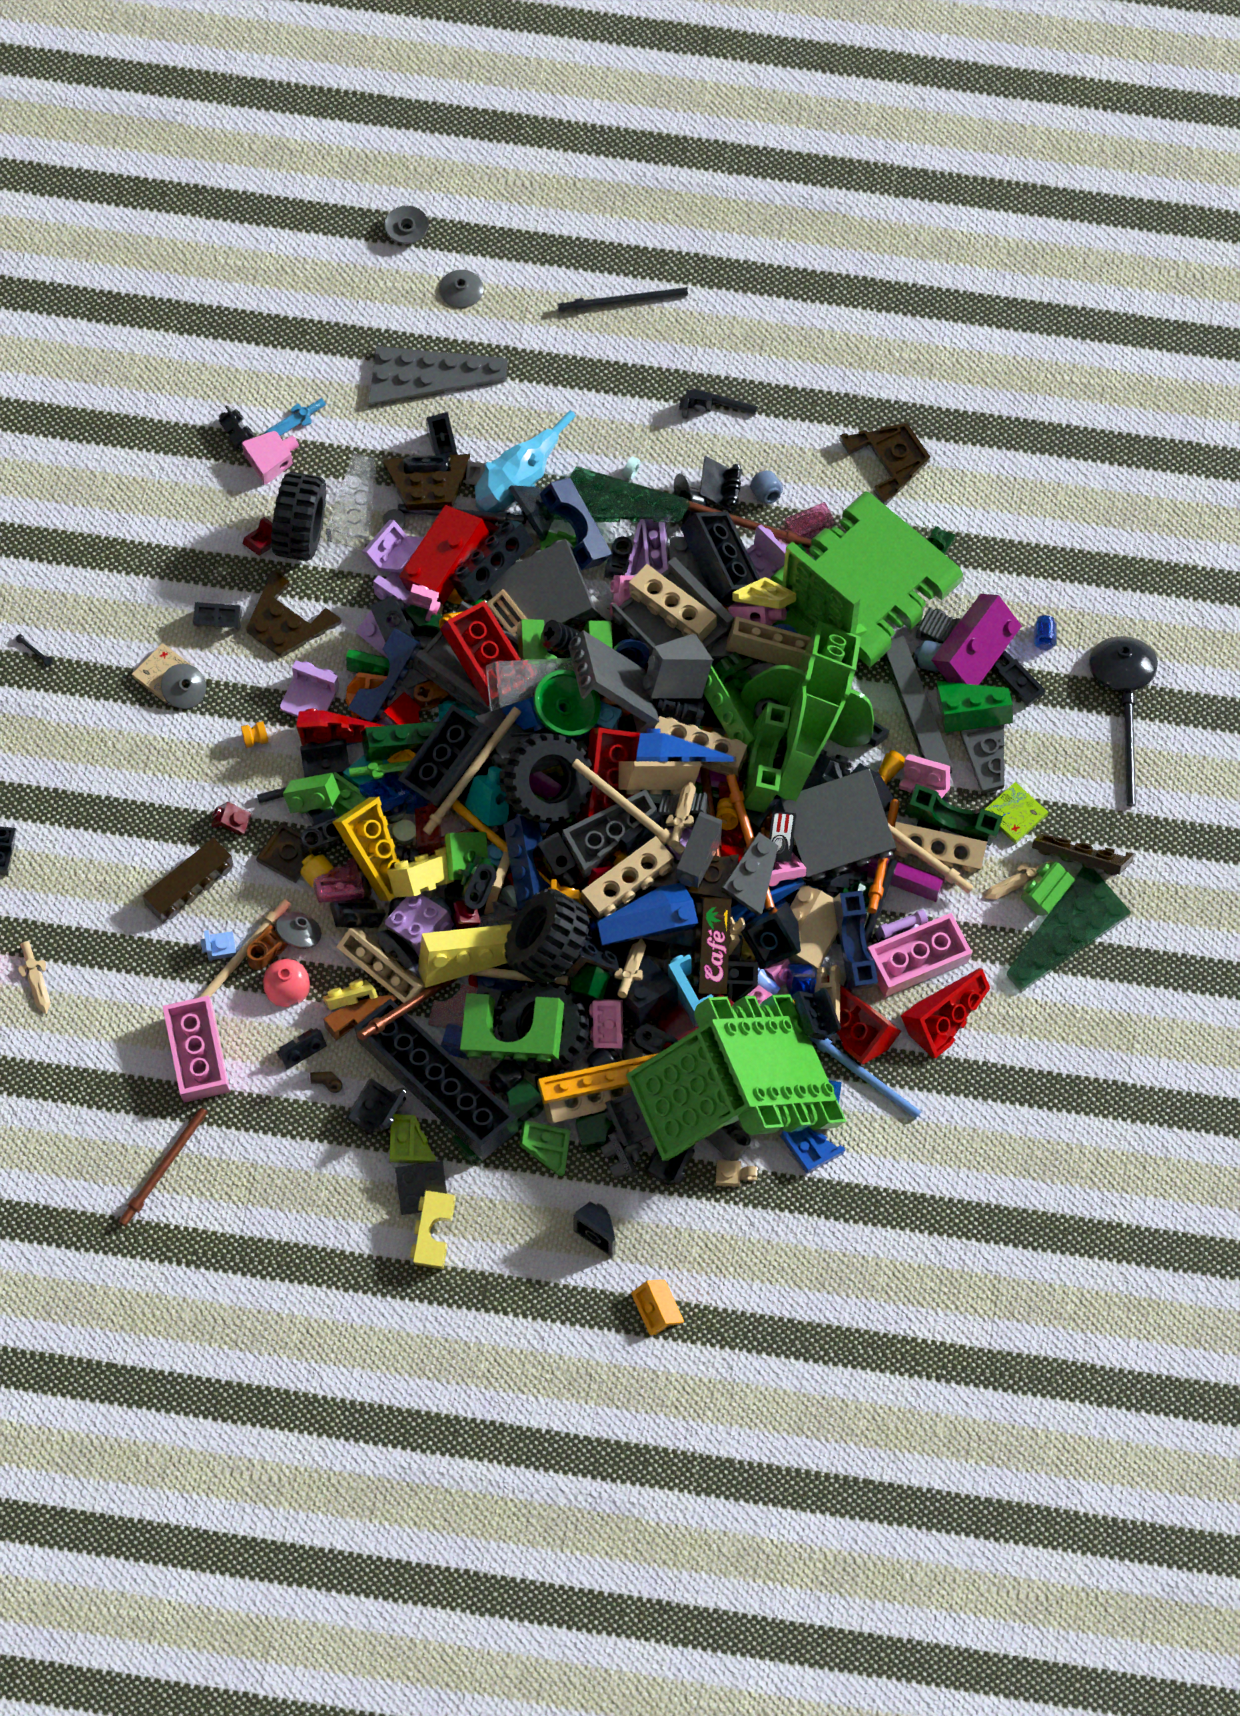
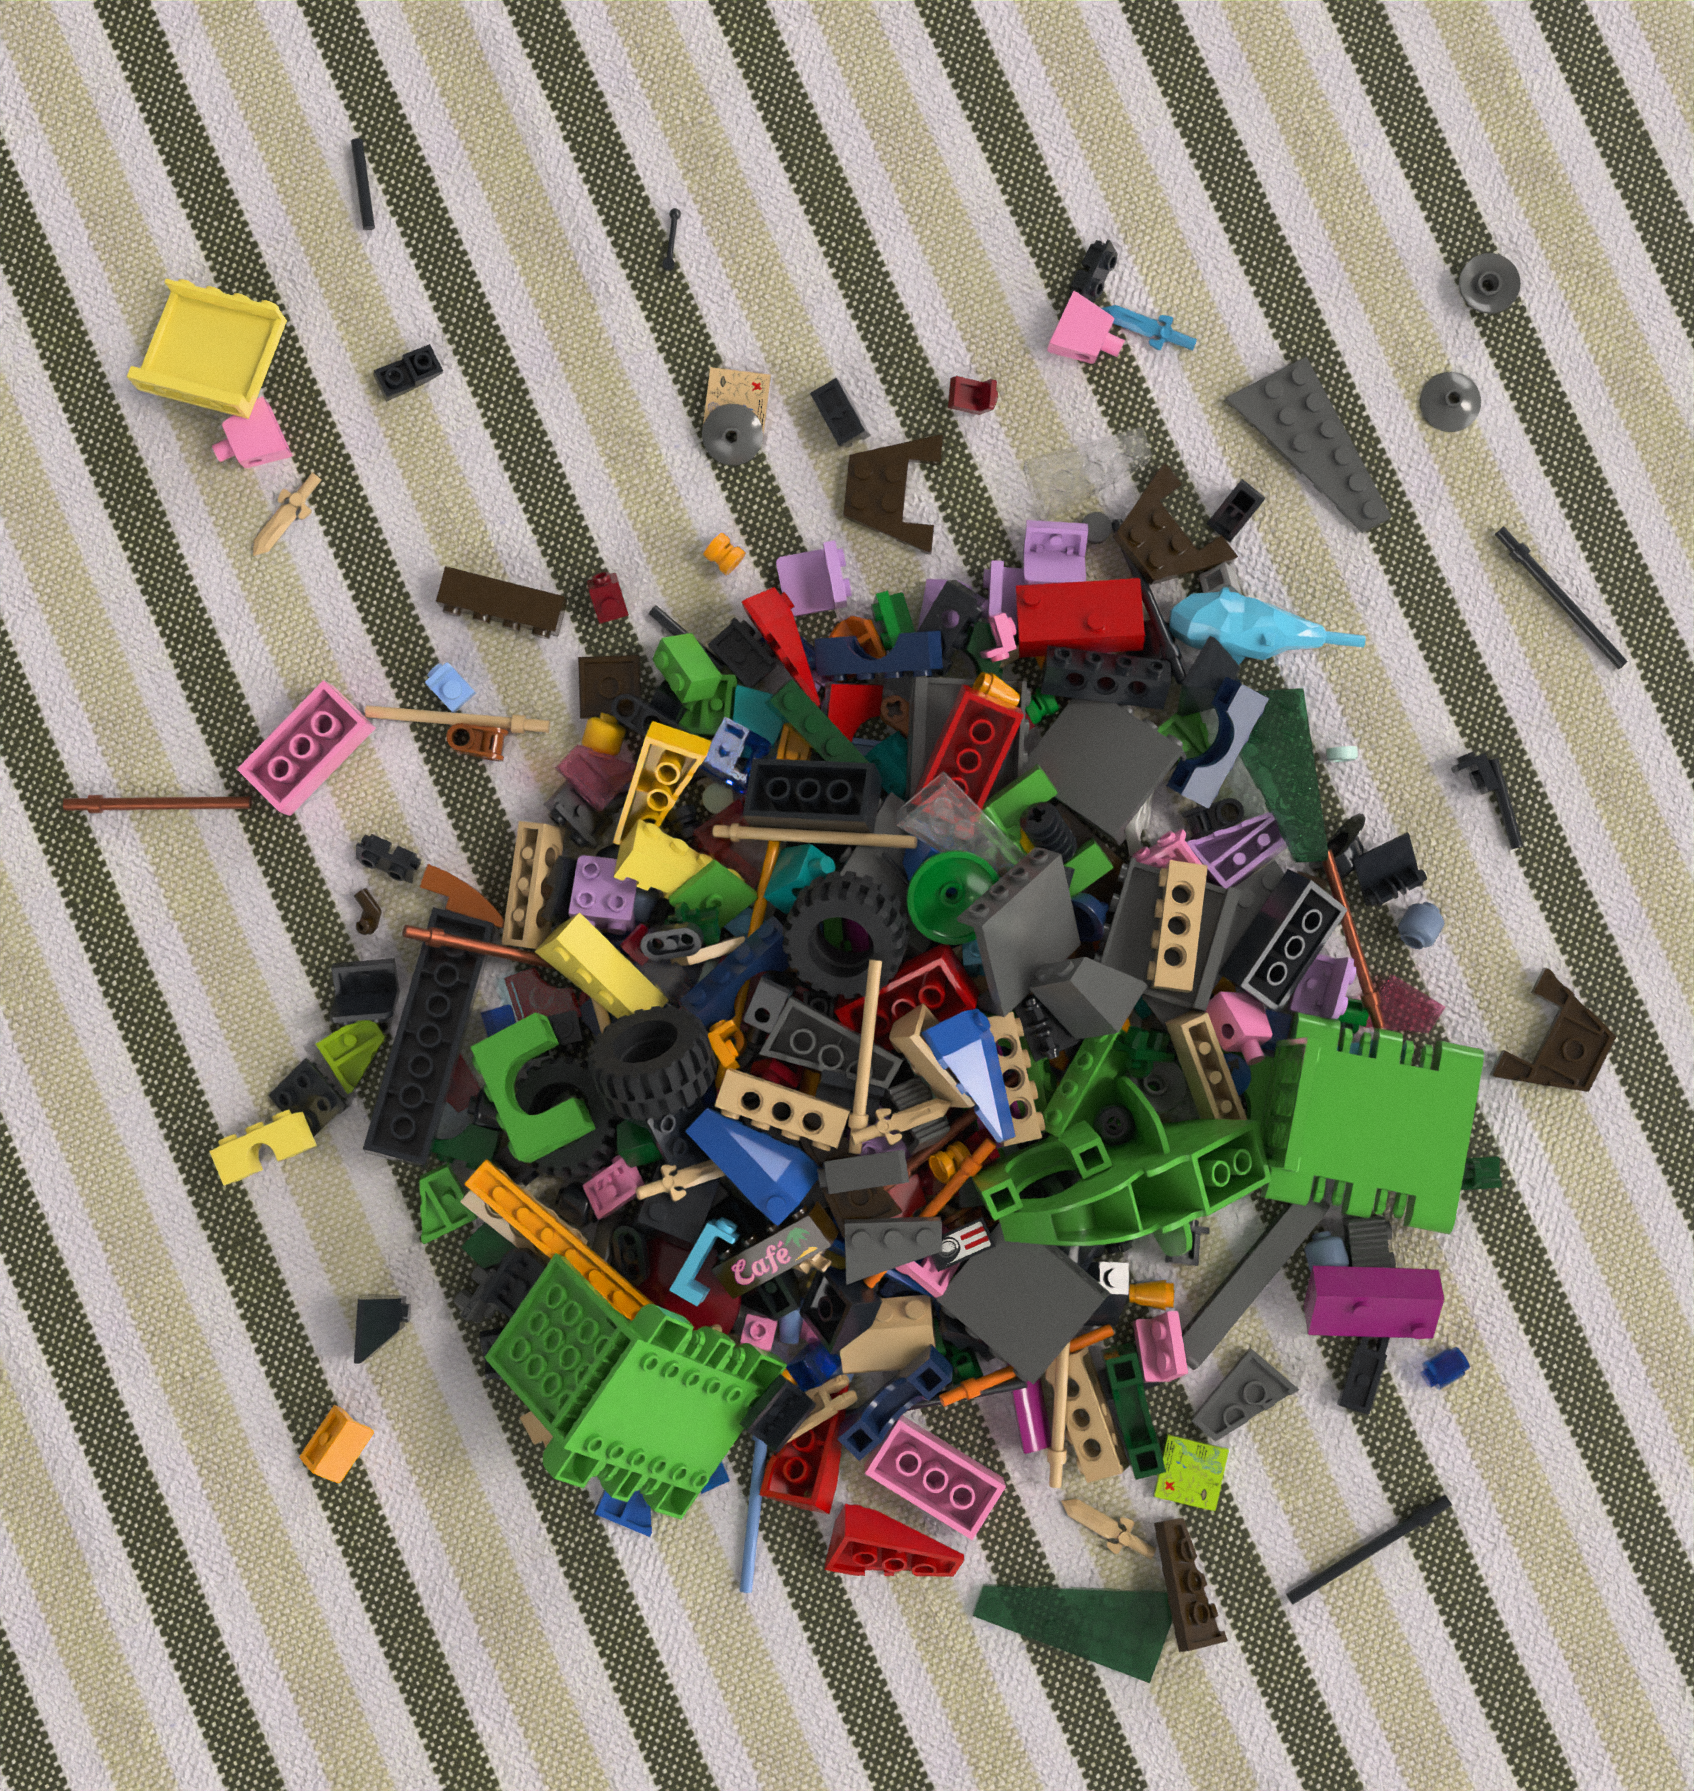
camera: 55 degrees right, 20 degrees up
(286, 982) = (453, 790): coral cylinder -> none
(298, 516) = (1012, 421): black tyre -> none
(298, 930) = (507, 762): dark grey dish -> none
(341, 997) = (478, 872): light yellow wing -> none
(377, 768) = (768, 731): bright green sword -> none
(426, 464) = (1190, 516): black plate -> none
(496, 598) = (1065, 741): tan tile -> none
(765, 593) = (1262, 1027): light yellow wing -> none
(889, 930) = (957, 1434): lavender plate -> none
(973, 706) = (1289, 1346): green wedge -> none
(1046, 888) = (1114, 1571): bright green brick -> none
(1123, 663) = (1448, 1487): black dish -> none

